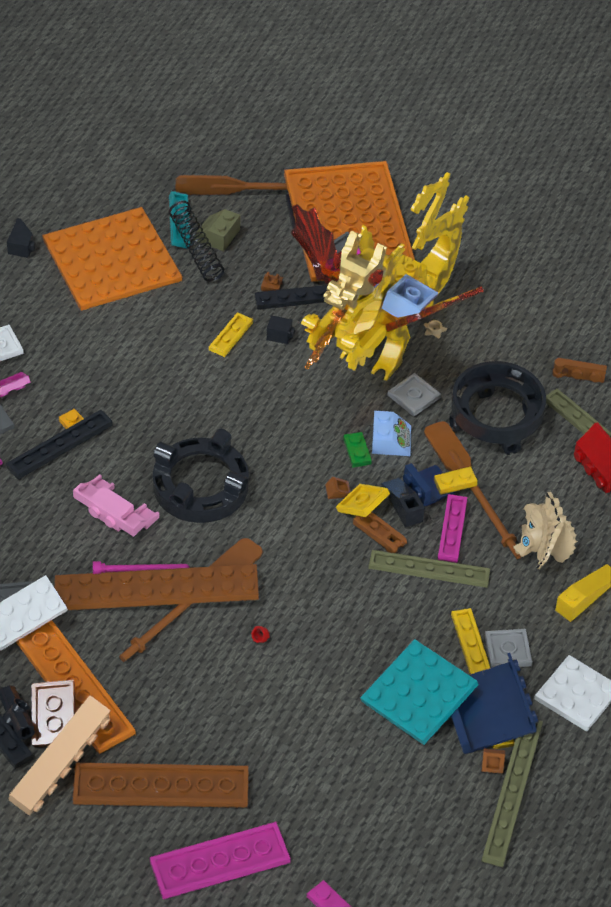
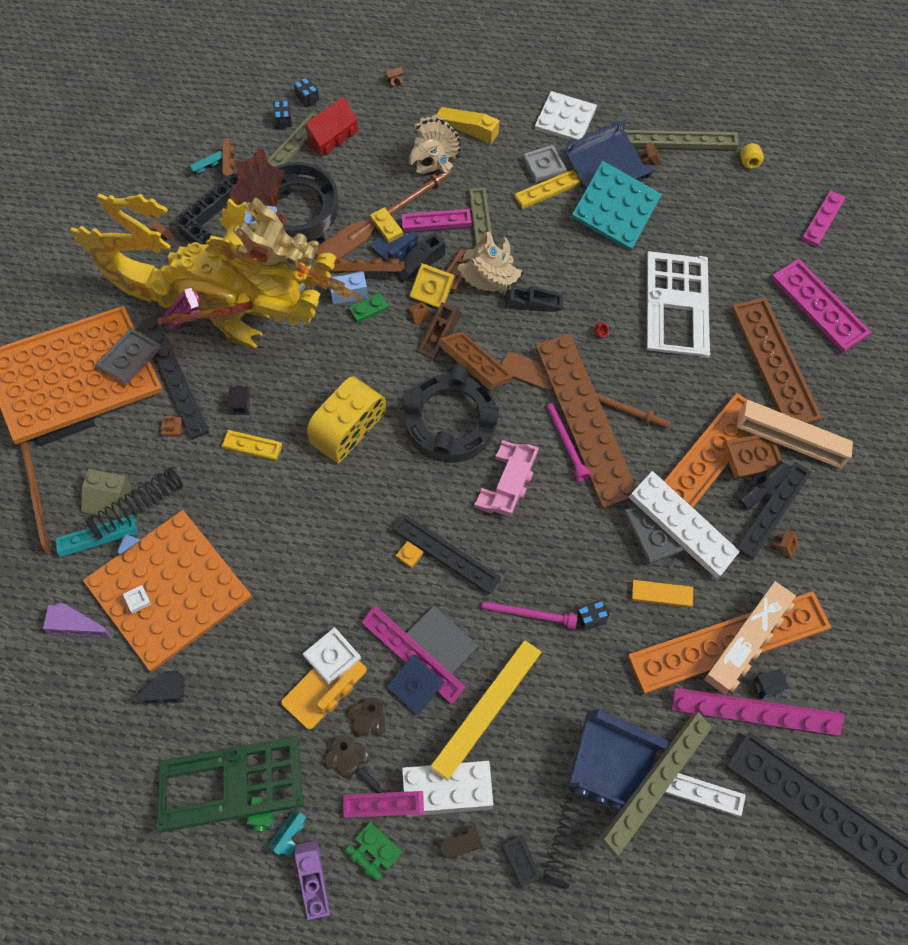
camera: 105 degrees left, 15 degrees up
(104, 229) = (137, 599): none -> white plate
(105, 195) = (66, 621): none -> medium lavender slope
(162, 234) = (127, 543): none -> medium blue slope
(226, 395) = (345, 418): none -> yellow brick
(257, 511) = (477, 361): none -> dark orange plate
(274, 727) = (659, 298): none -> white door
(310, 497) = (441, 326): none -> reddish brown slope
(319, 585) = (533, 299): none -> black slope
(365, 548) = (490, 266): none -> tan piece
(403, 452) = (375, 264): none -> dark orange plate
(461, 866) = (751, 156): none -> yellow head
(502, 306) = (159, 228): none -> dark orange tile
(505, 327) = (191, 219): none -> black beam
(581, 349) = (212, 159): none -> teal plate

